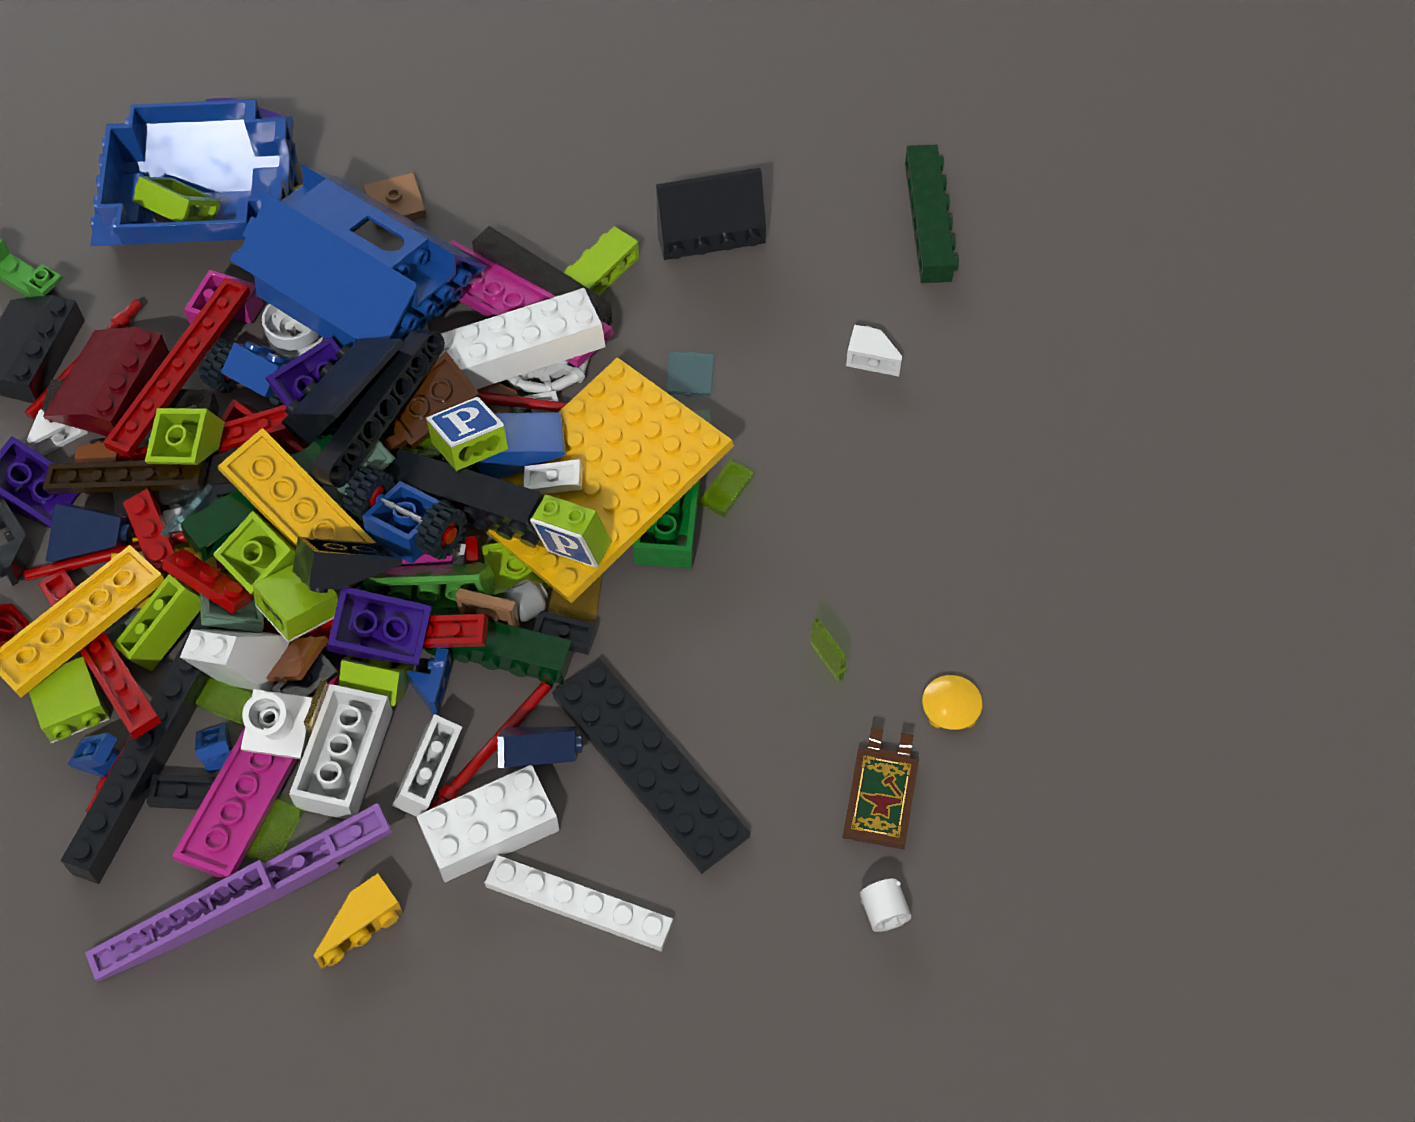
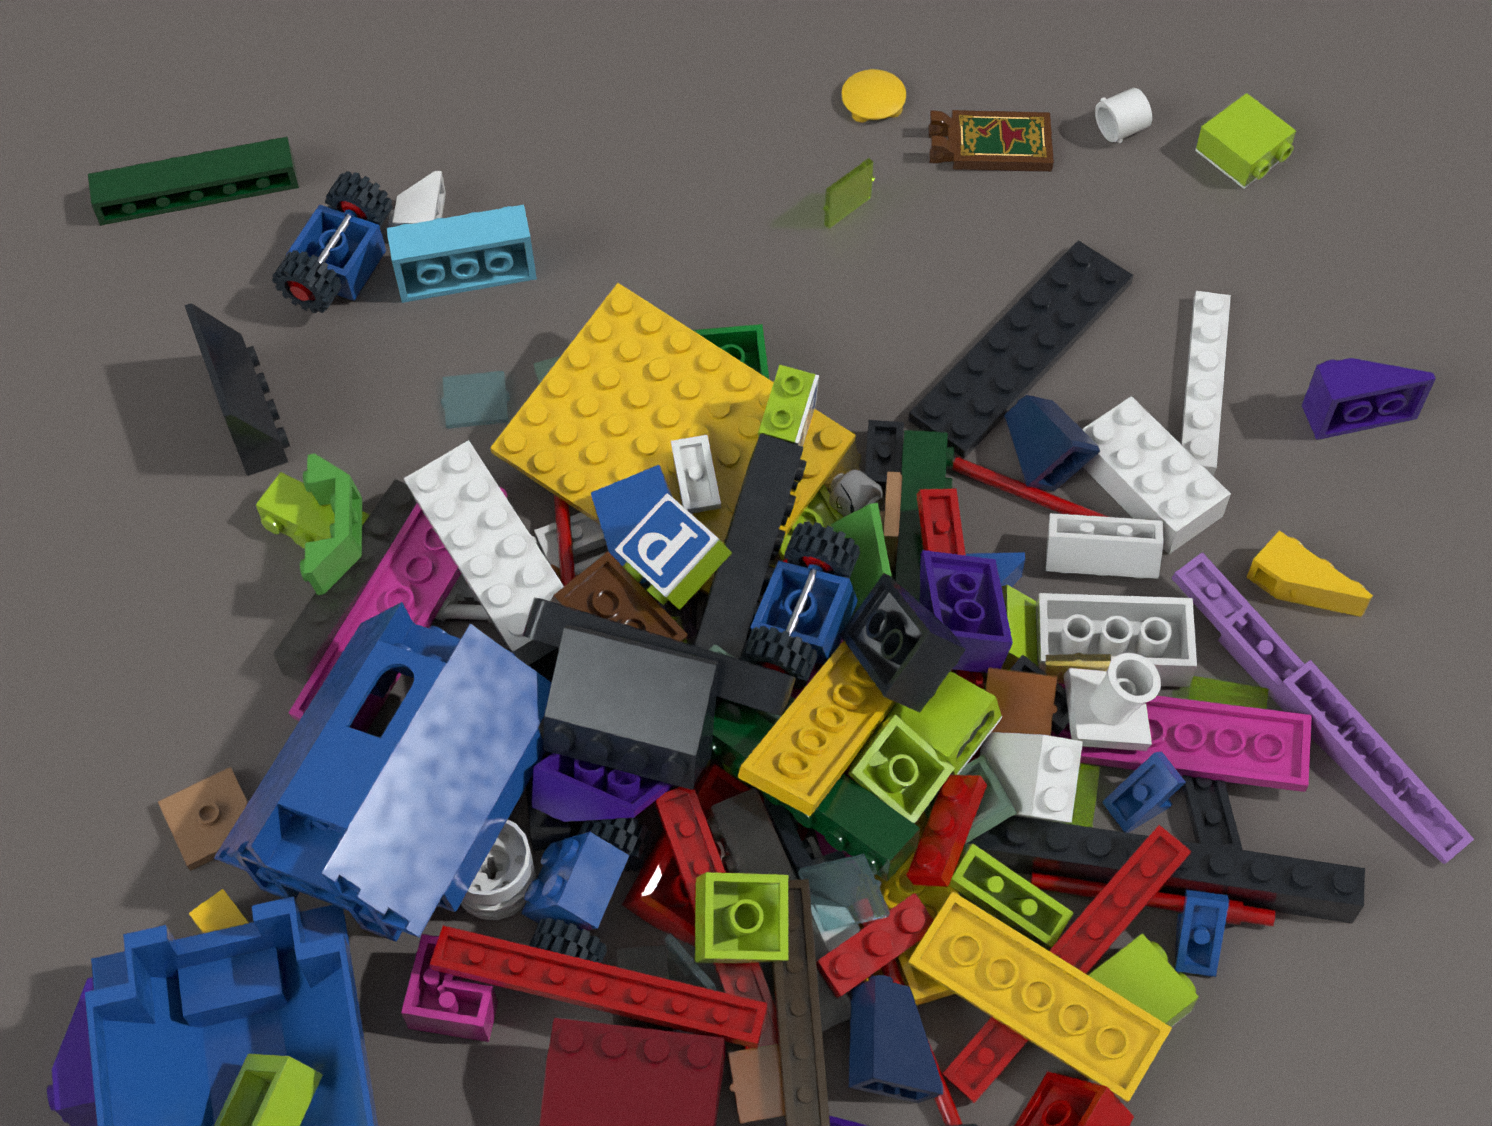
camera: 100 degrees left, 0 degrees up
(514, 1009) = (1362, 396): none -> dark purple slope
(575, 263) = (332, 557): none -> bright green slope
(815, 366) = (462, 253): none -> medium azure brick
(834, 286) = (336, 245): none -> brick
(836, 1012) = (1245, 140): none -> lime piece

